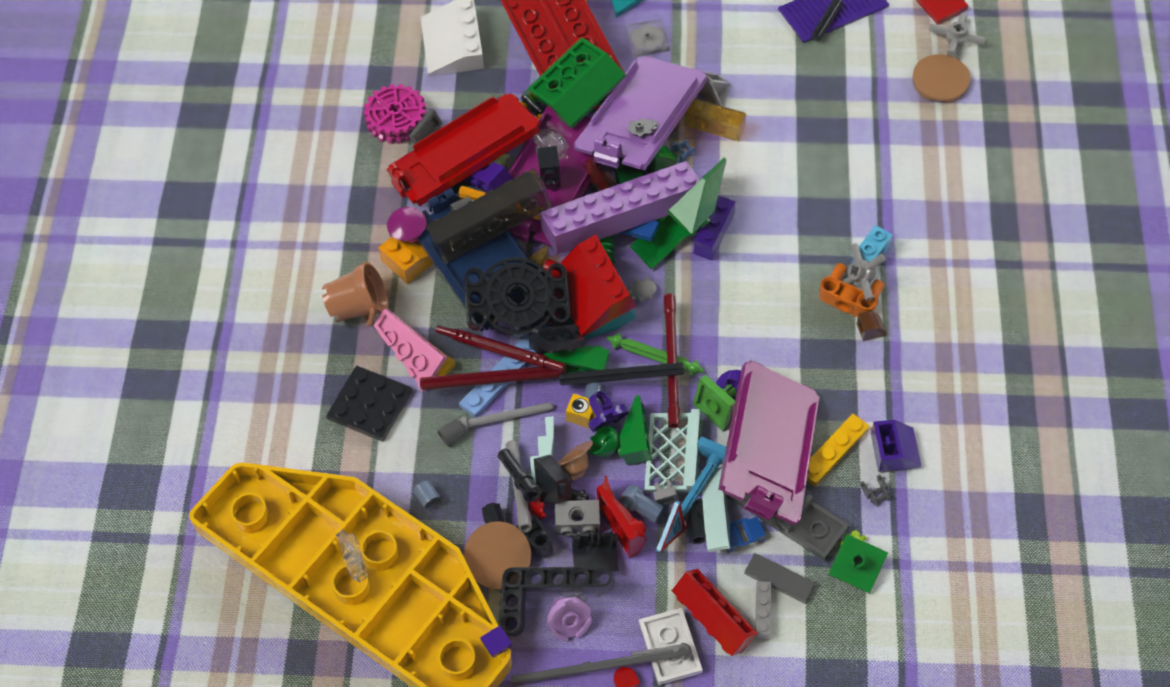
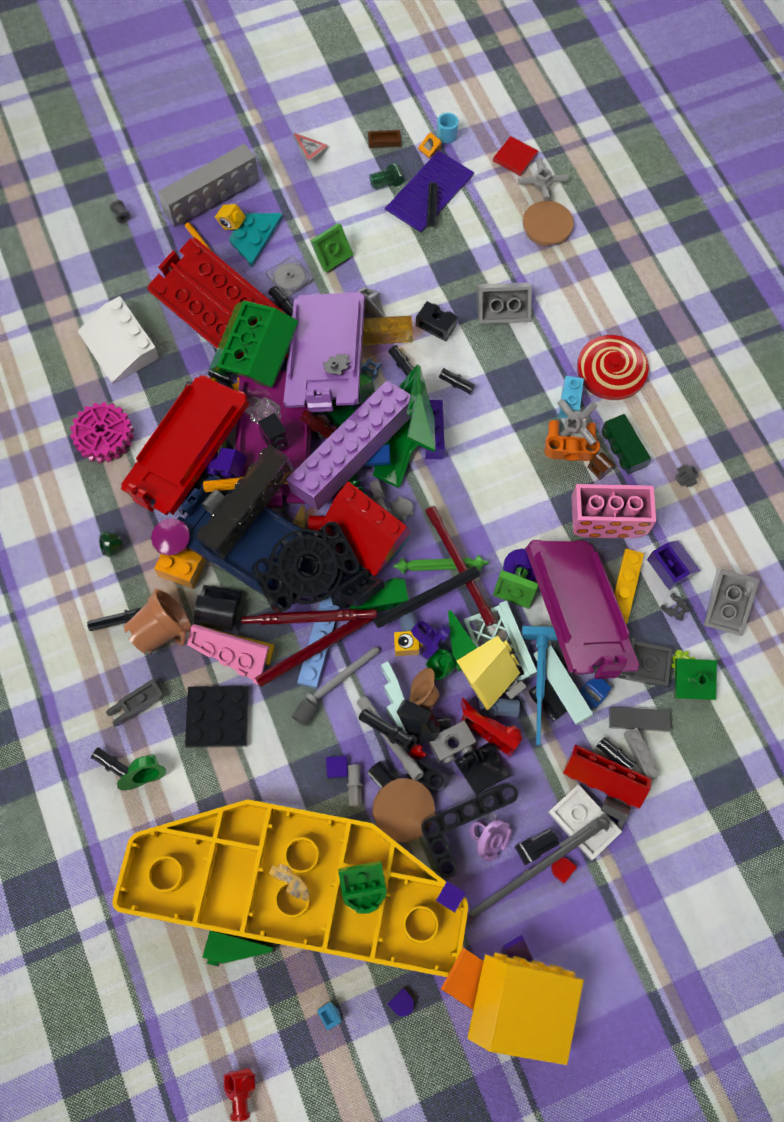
camera: 30 degrees left, 10 degrees up
(253, 402) = (109, 762): none -> black pin
(274, 421) = (141, 771): none -> green piece
(275, 607) = (228, 949): none -> green slope
(301, 359) = (136, 702): none -> dark grey hinge
(312, 279) = (112, 620): none -> black axle
(351, 212) = (109, 543): none -> dark green cone
(418, 306) = (217, 607): none -> black brick
(419, 595) = (363, 886): none -> green slope
(427, 126) = (137, 435): dark grey tile -> none
(427, 495) = (313, 780): sand blue beam -> none
(456, 494) = (336, 767): none -> dark purple tile
(464, 516) = (354, 785): none -> light grey axle
(604, 646) = (532, 848): none -> black piece
(625, 269) = (378, 492): none -> light grey connector
(626, 53) = (282, 301): none -> black pin
(646, 462) = (490, 670): none -> light yellow slope
(701, 24) = (331, 247): none -> bright green tile
(710, 650) = (616, 810): none -> dark grey tile
(716, 150) = (401, 360): none -> black pin
(736, 598) = (615, 754): none -> black pin
(763, 192) = (456, 381): none -> black pin
(771, 130) = (440, 328): none -> black brick
(850, 367) = (613, 511): none -> bright pink brick
(851, 136) = (504, 302): none -> light grey slope
(906, 315) = (625, 444): none -> dark green brick
(935, 239) = (612, 367): none -> red dish
(936, 506) = (730, 601): none -> light grey slope
(955, 369) = (687, 475): none -> dark grey gear

